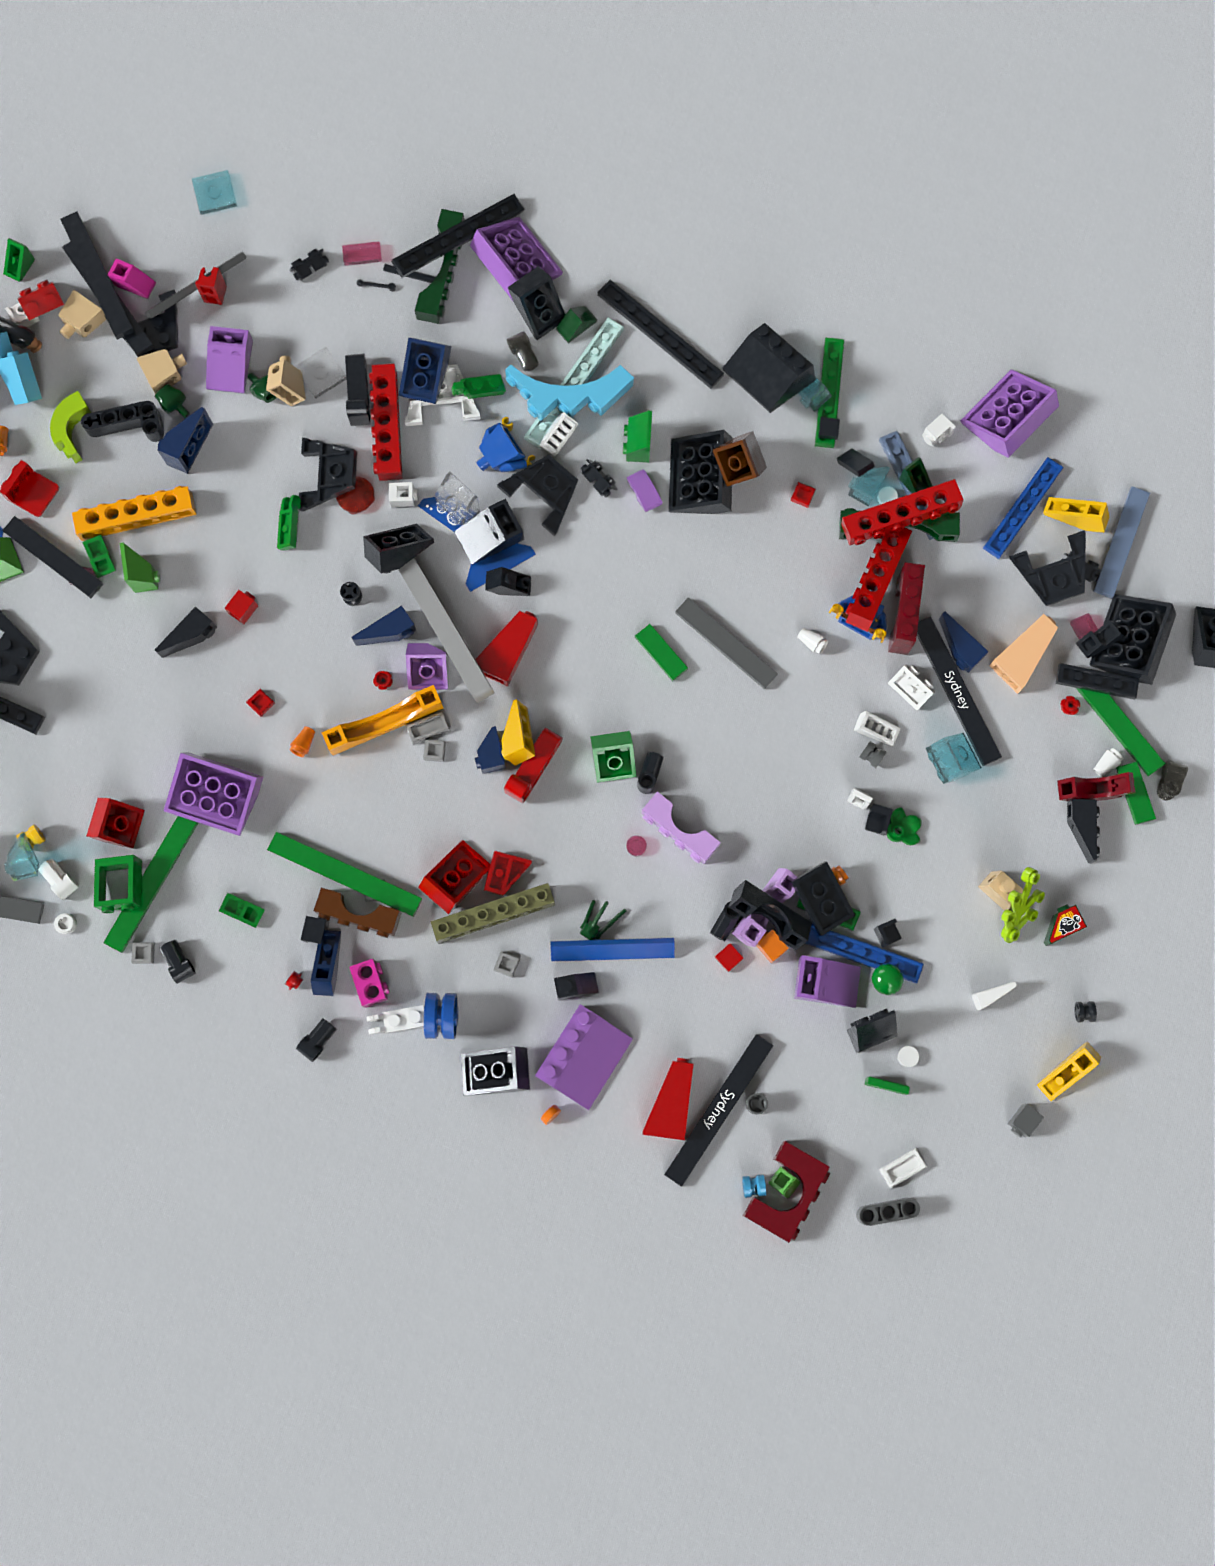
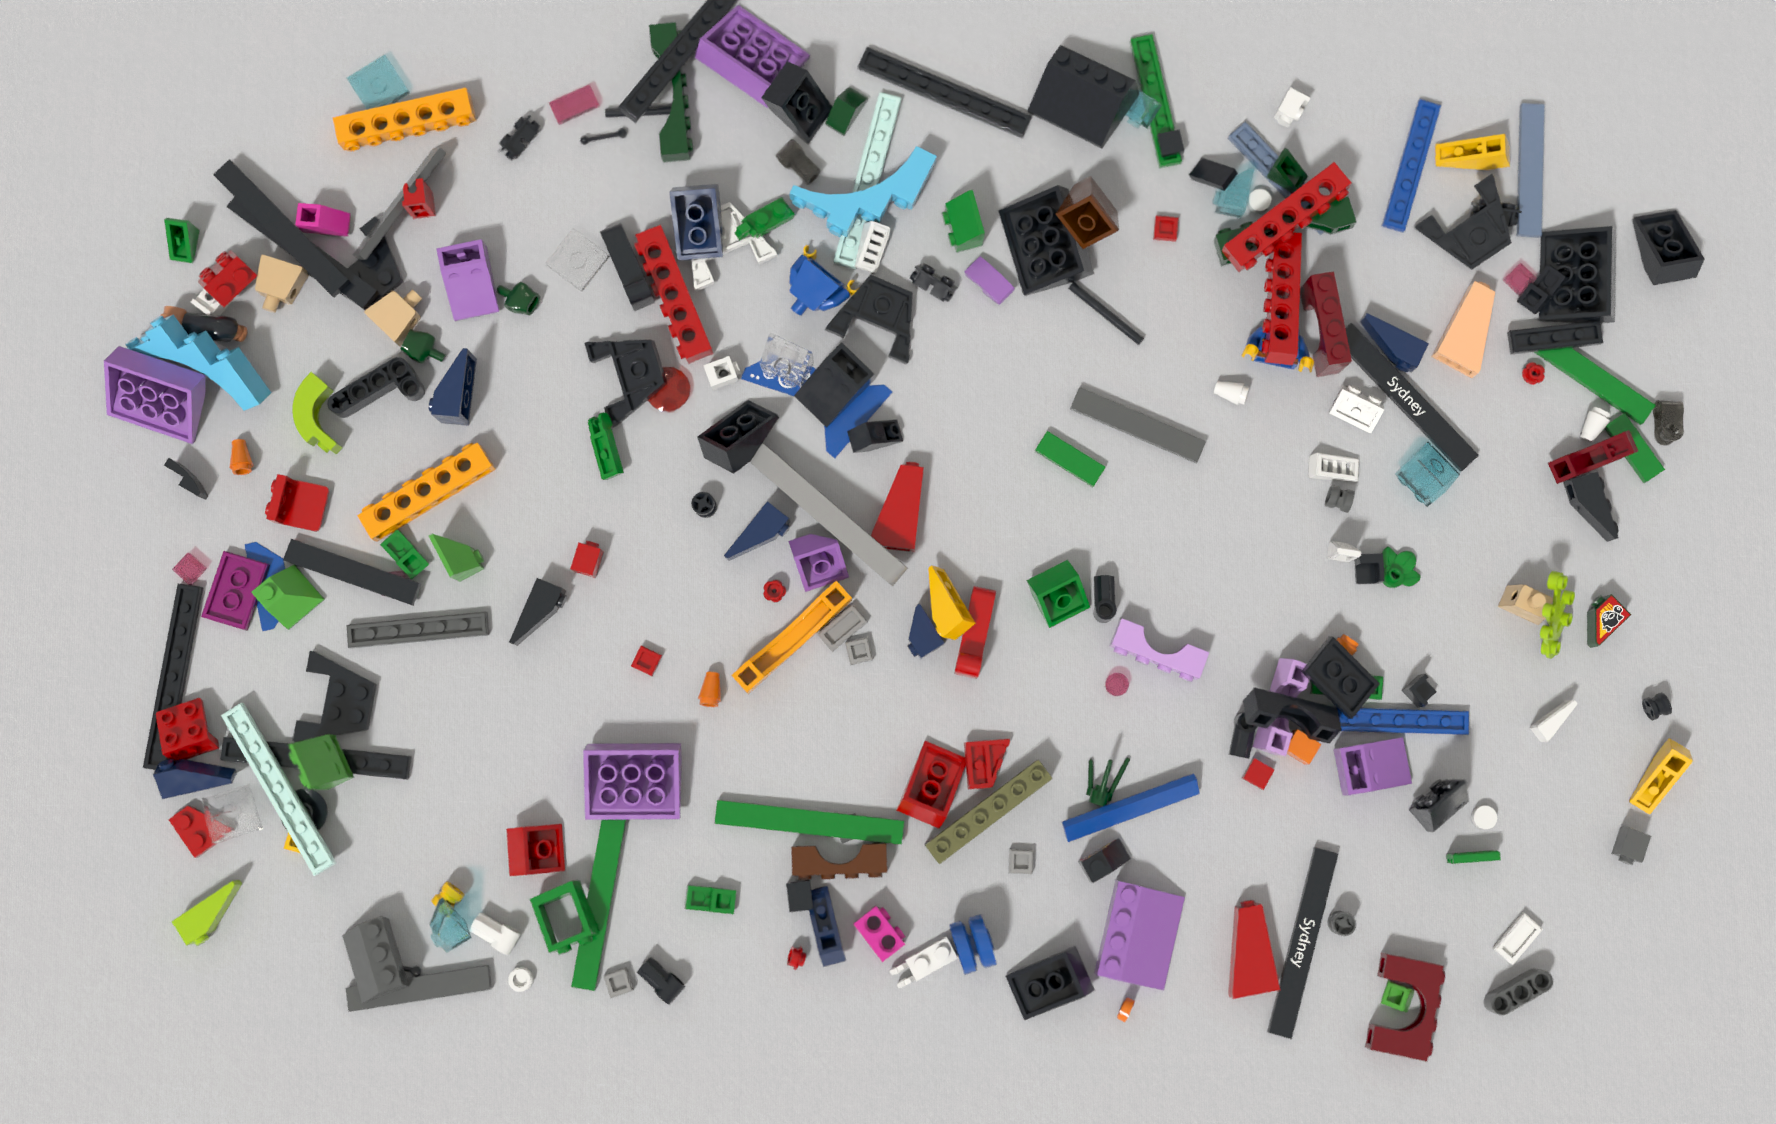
camera: 20 degrees left, 5 degrees up
(87, 619) = (417, 630): none -> dark grey tile
(234, 218) = (415, 109): none -> light orange brick
(286, 382) = (544, 284): tan torso -> none
(312, 1044) = (843, 1018): black piece -> none
(731, 547) = (1106, 313): none -> black bar
(749, 1186) = (1368, 1012): dark azure wheel -> none
(887, 979) = (1436, 741): green hair -> none
(1011, 412) = (1363, 60): medium lavender slope -> none

